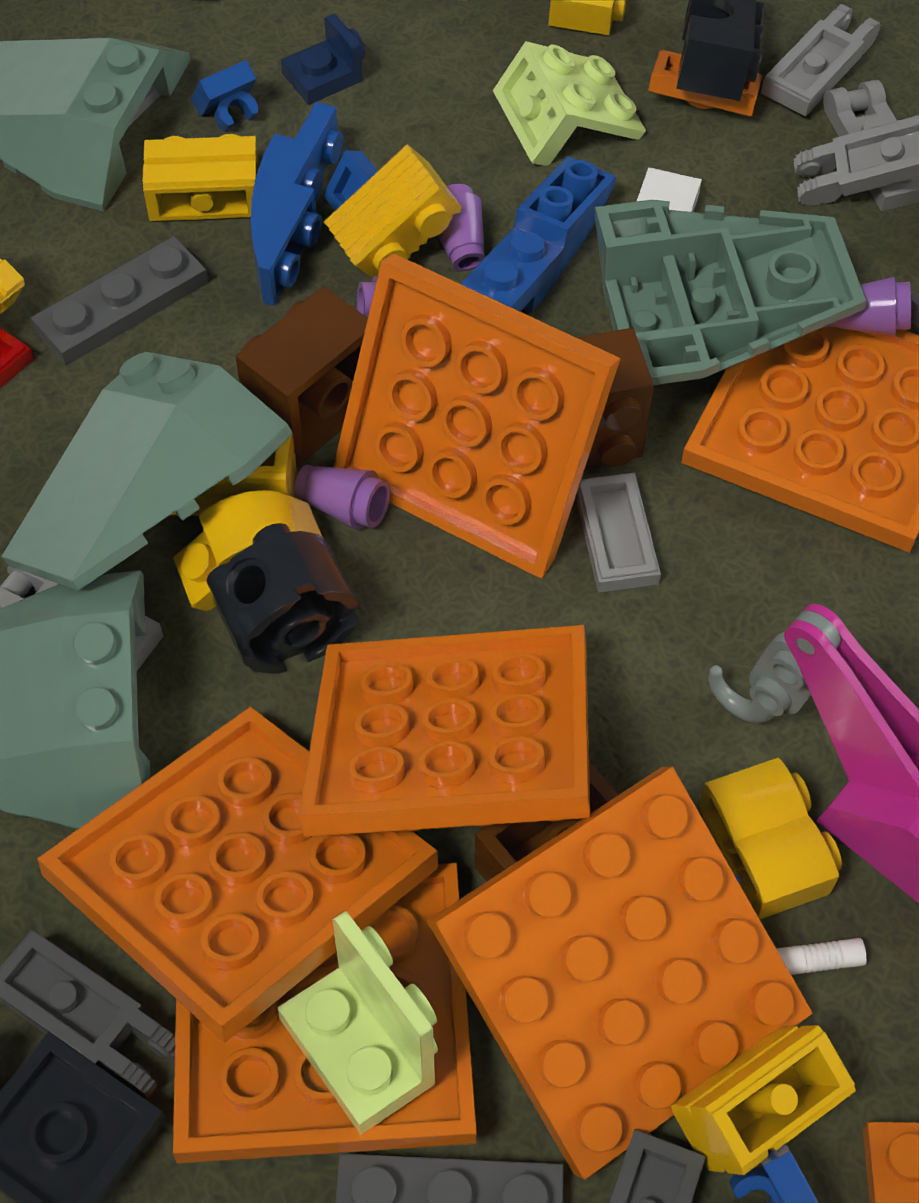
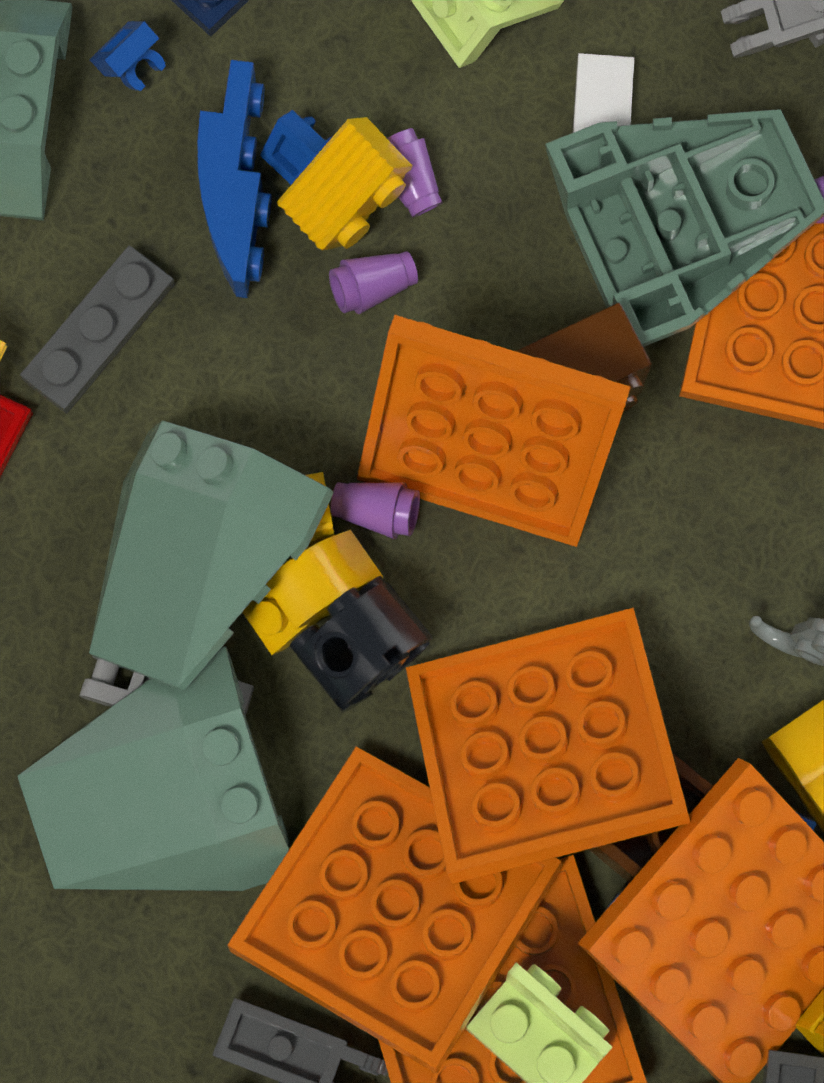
camera: 15 degrees left, 20 degrees up
(199, 177) = (136, 167): yellow brick -> none
(306, 367) = (316, 397): reddish brown brick -> none
(544, 236) = (492, 176): blue slope -> none
(617, 533) = (639, 489): light grey tile -> none

